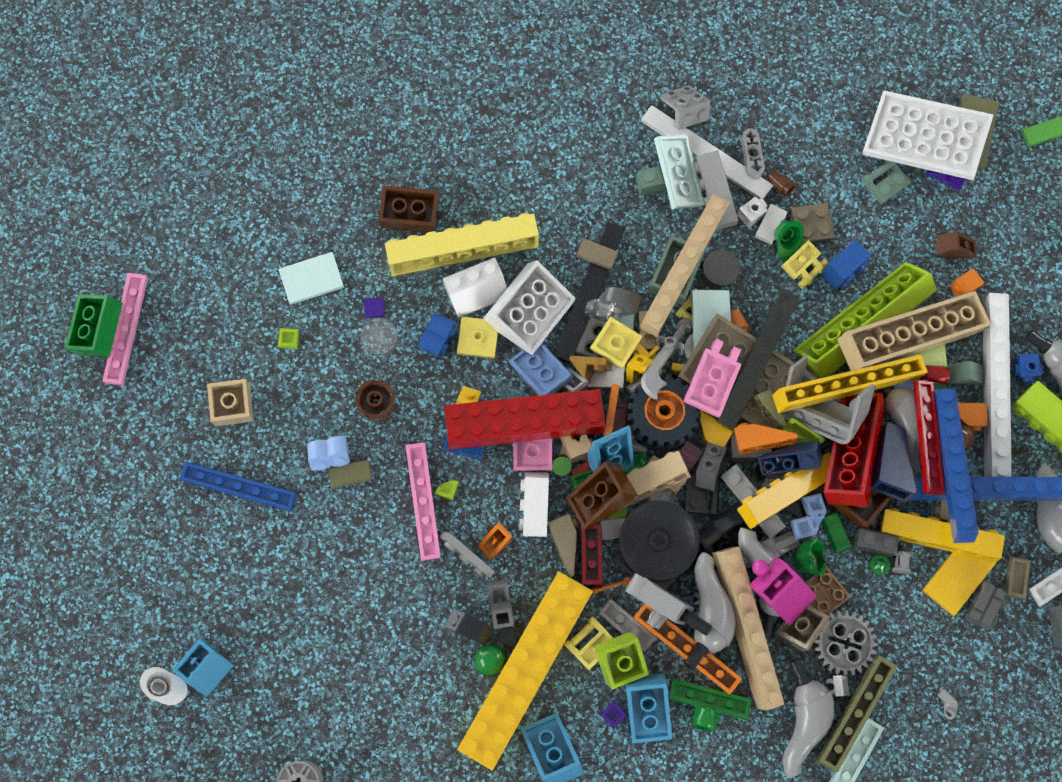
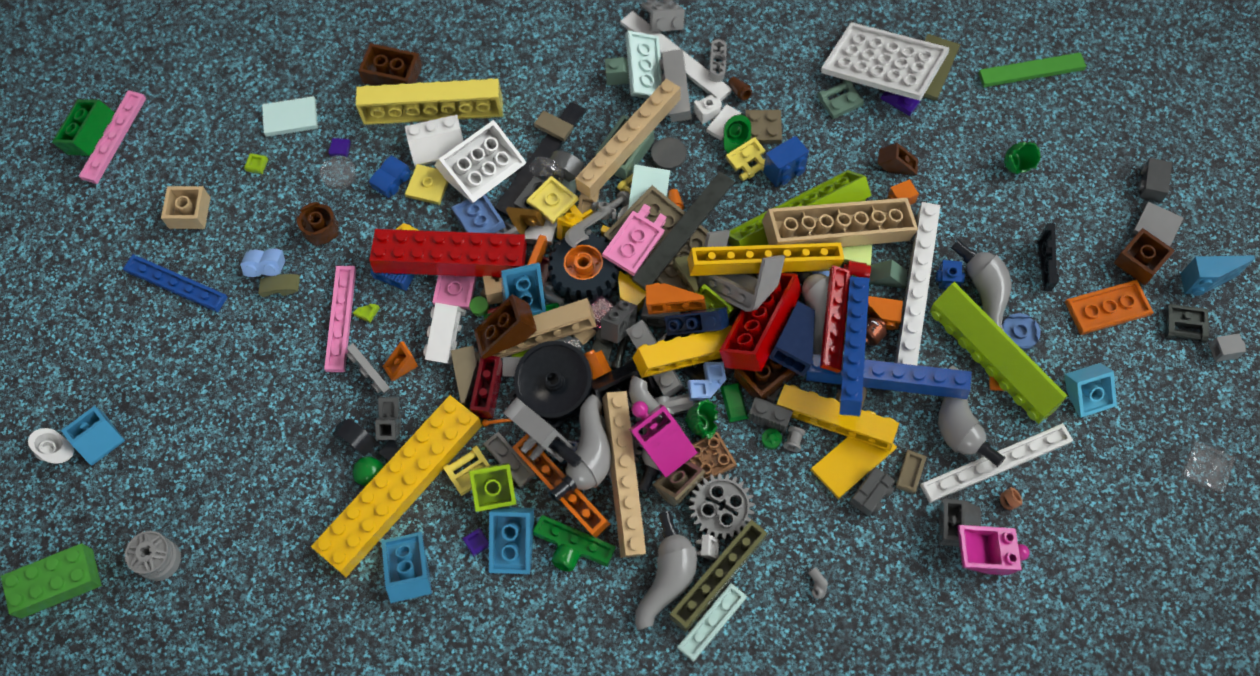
camera: 15 degrees right, 10 degrees down
(698, 514) = (598, 363): none -> orange brick

